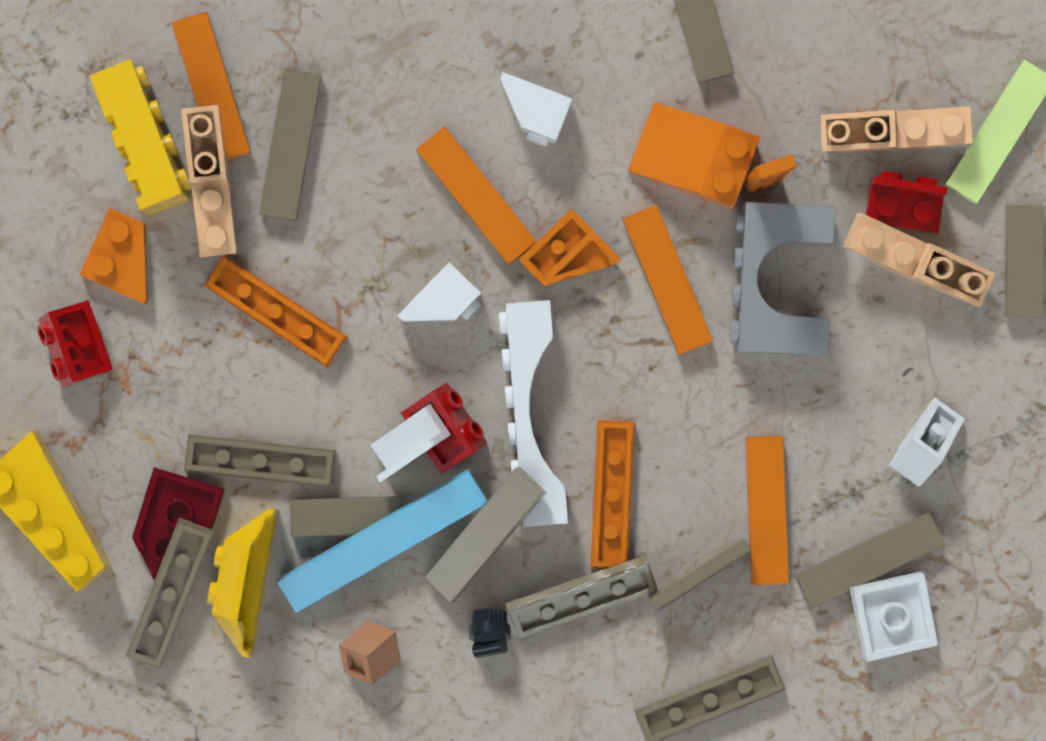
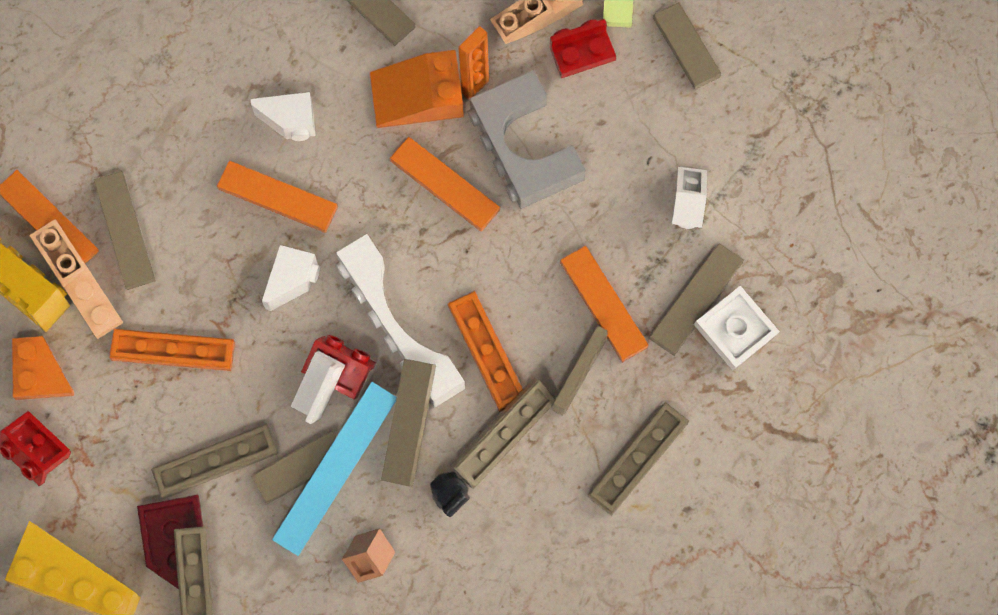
camera: 25 degrees left, 15 degrees down
(242, 580) = (244, 551): yellow wedge -> none
(567, 252) = (363, 200): orange wing -> none
(918, 260) = (613, 81): light nougat slope -> none

